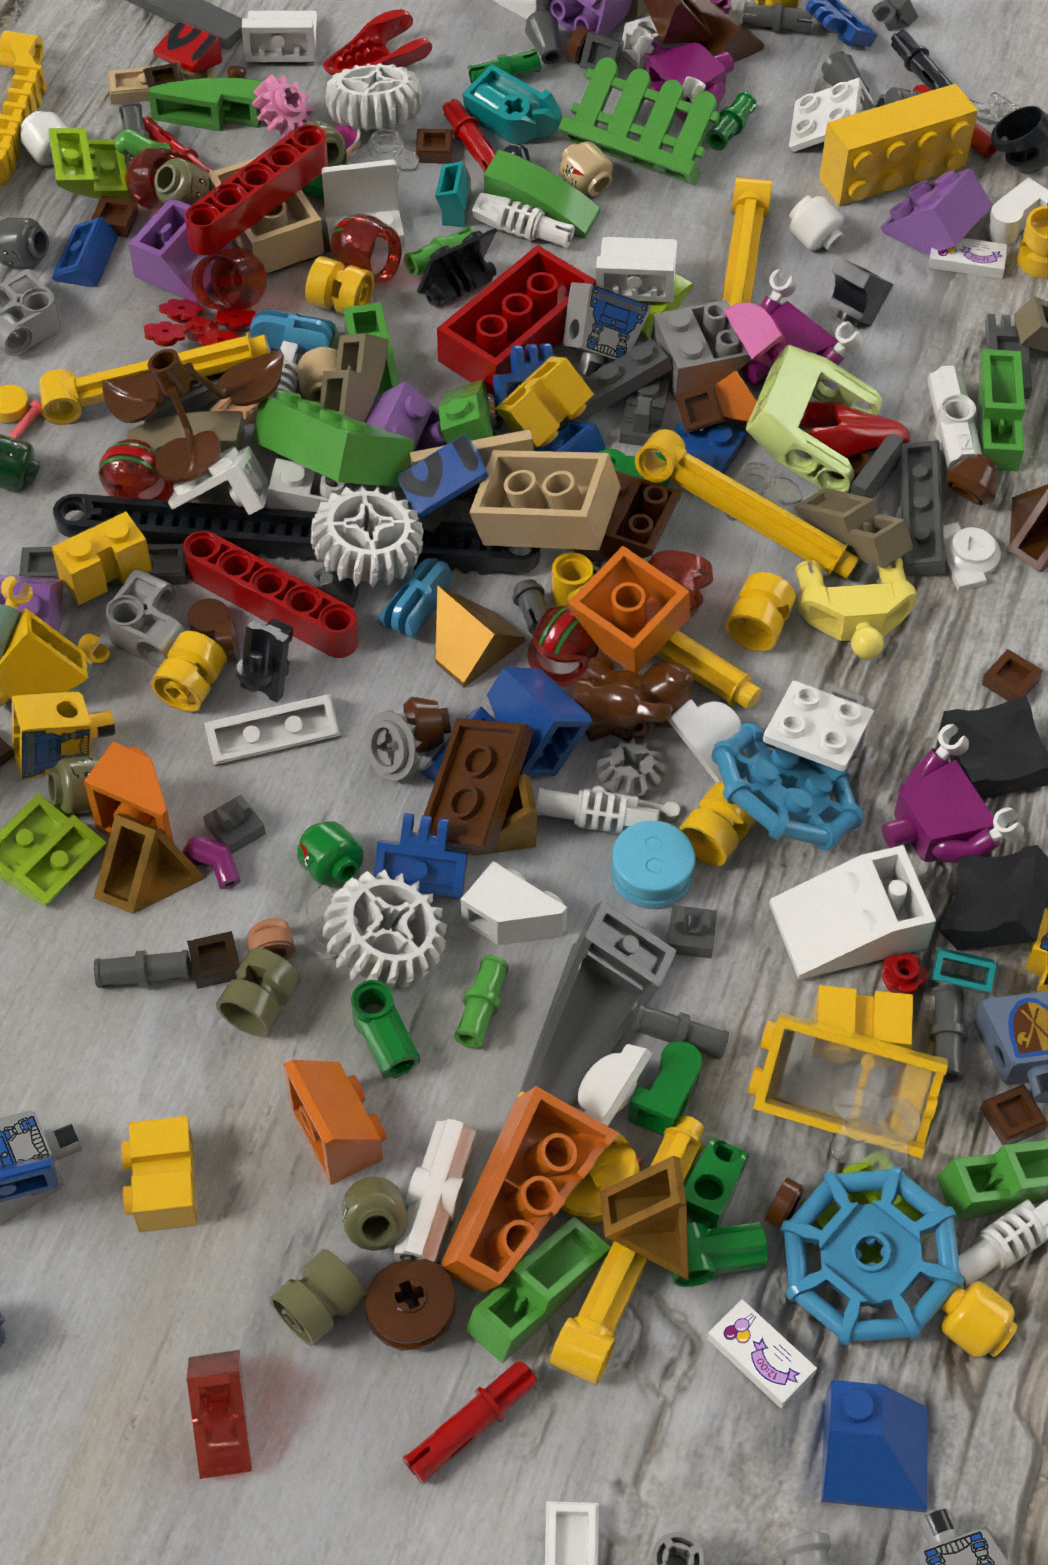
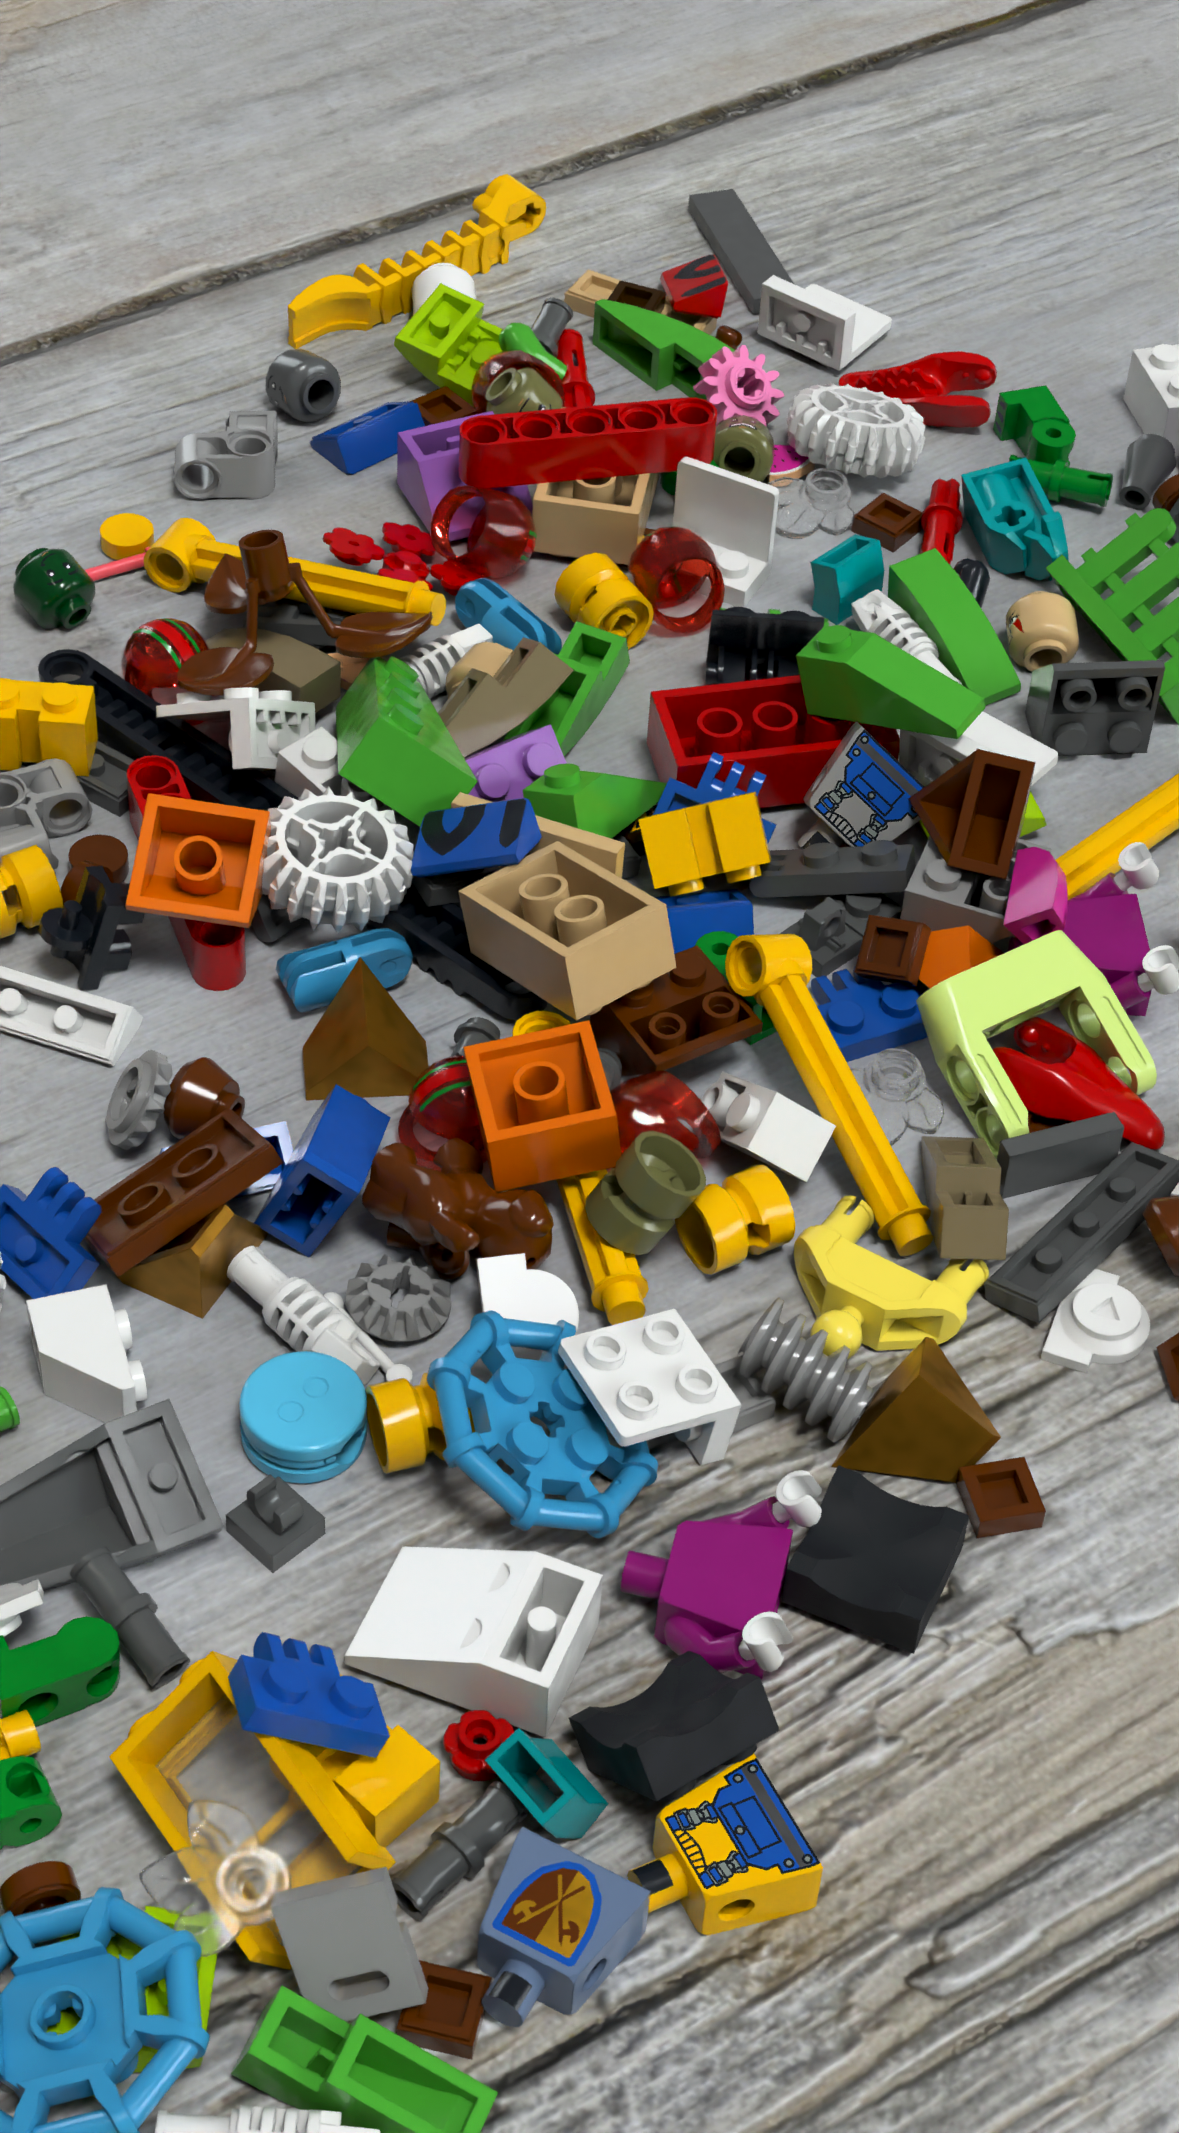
camera: 35 degrees right, 10 degrees down
(303, 589) = (199, 861): none -> orange slope
(463, 40) = (1035, 424): none -> green leg
(573, 252) = (878, 684): none -> bright green slope
(659, 199) = (1094, 706): none -> dark grey slope
(687, 300) = (977, 811): none -> reddish brown slope
(721, 627) = (645, 1192): none -> olive wheel
(731, 547) = (767, 1125): none -> white slope
(837, 1009) = (305, 1699): none -> blue hinge
(877, 668) = (807, 1371): none -> light grey piece
(943, 662) = (920, 1422): none -> pearl gold slope
(966, 1115) = (348, 1931): none -> light grey piece

